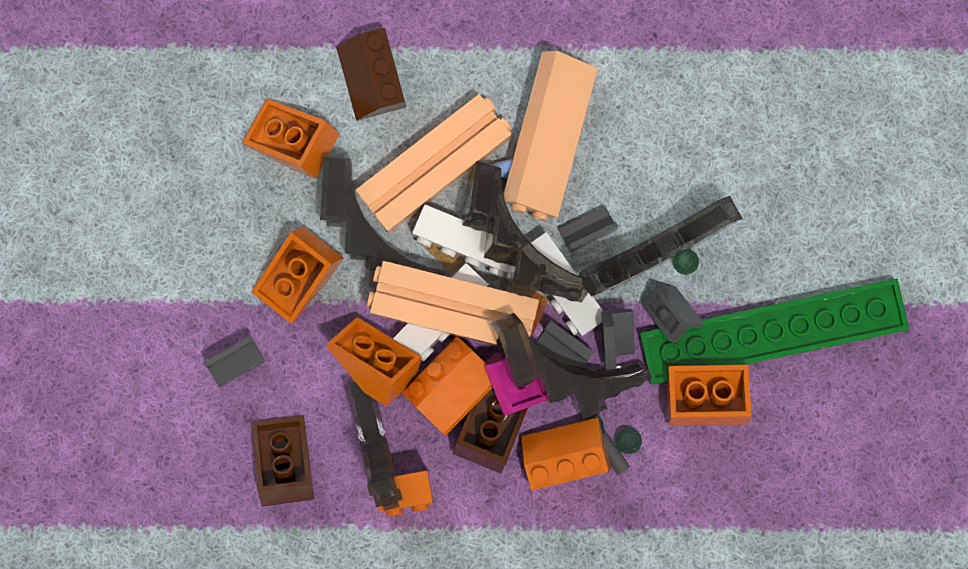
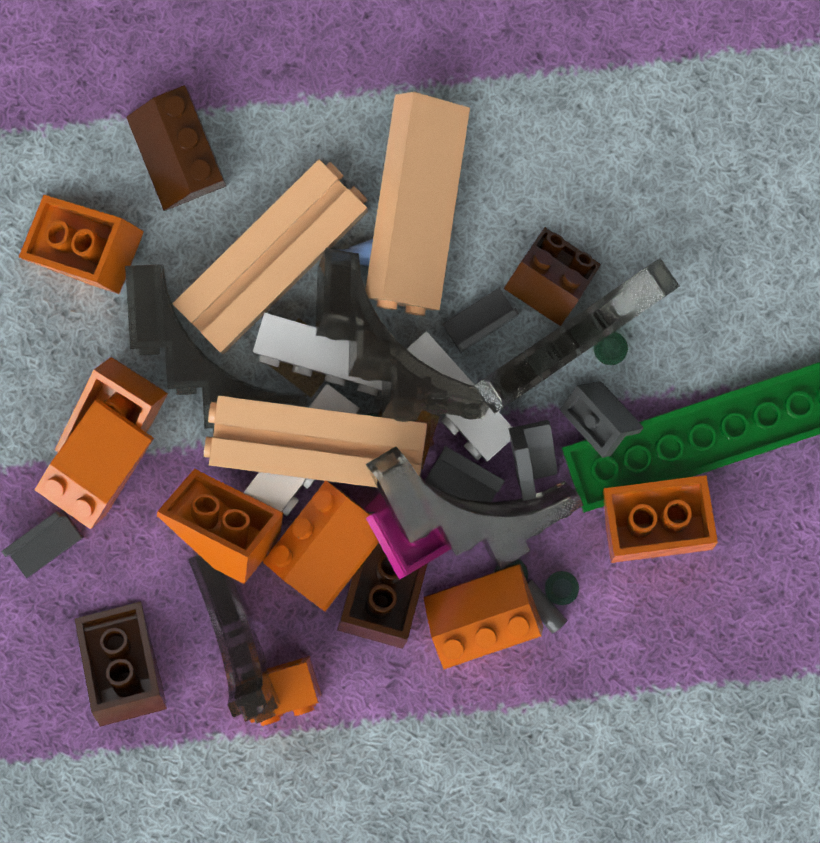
camera: 10 degrees left, 5 degrees up
(282, 304) = (94, 464): none -> orange slope
(646, 202) = (552, 276): none -> reddish brown slope

